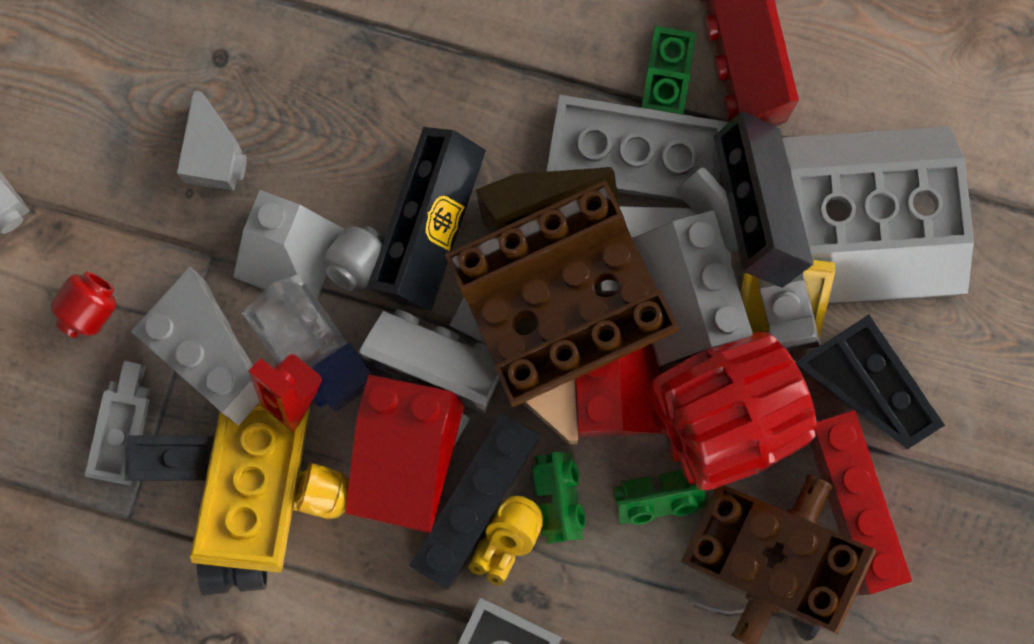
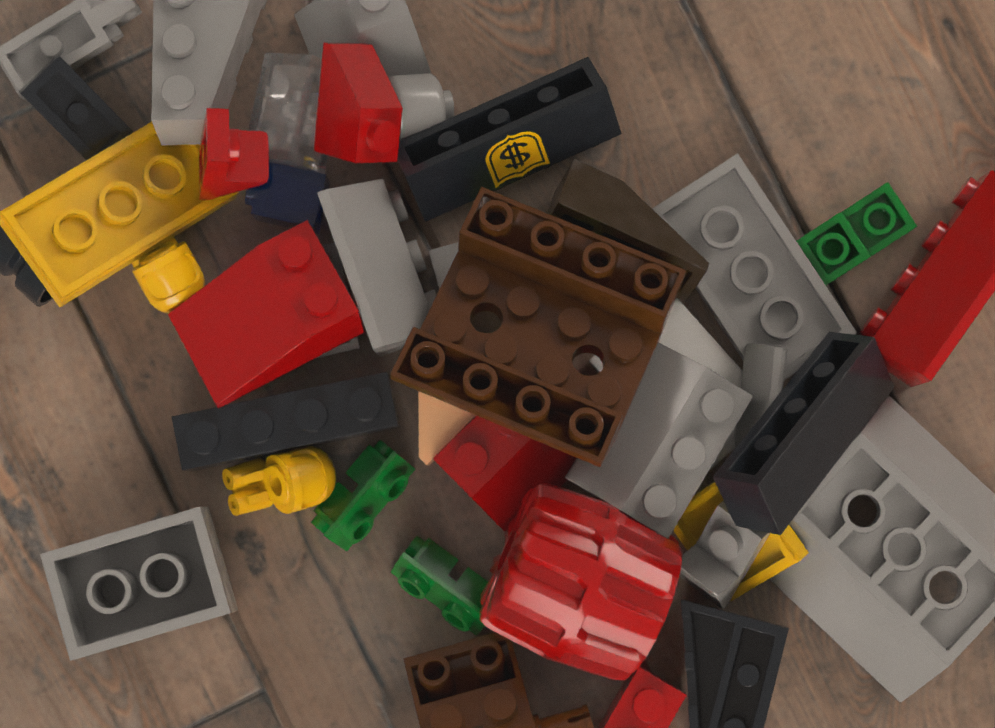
camera: 50 degrees right, 5 degrees up
(327, 285) = (356, 106): none -> red slope

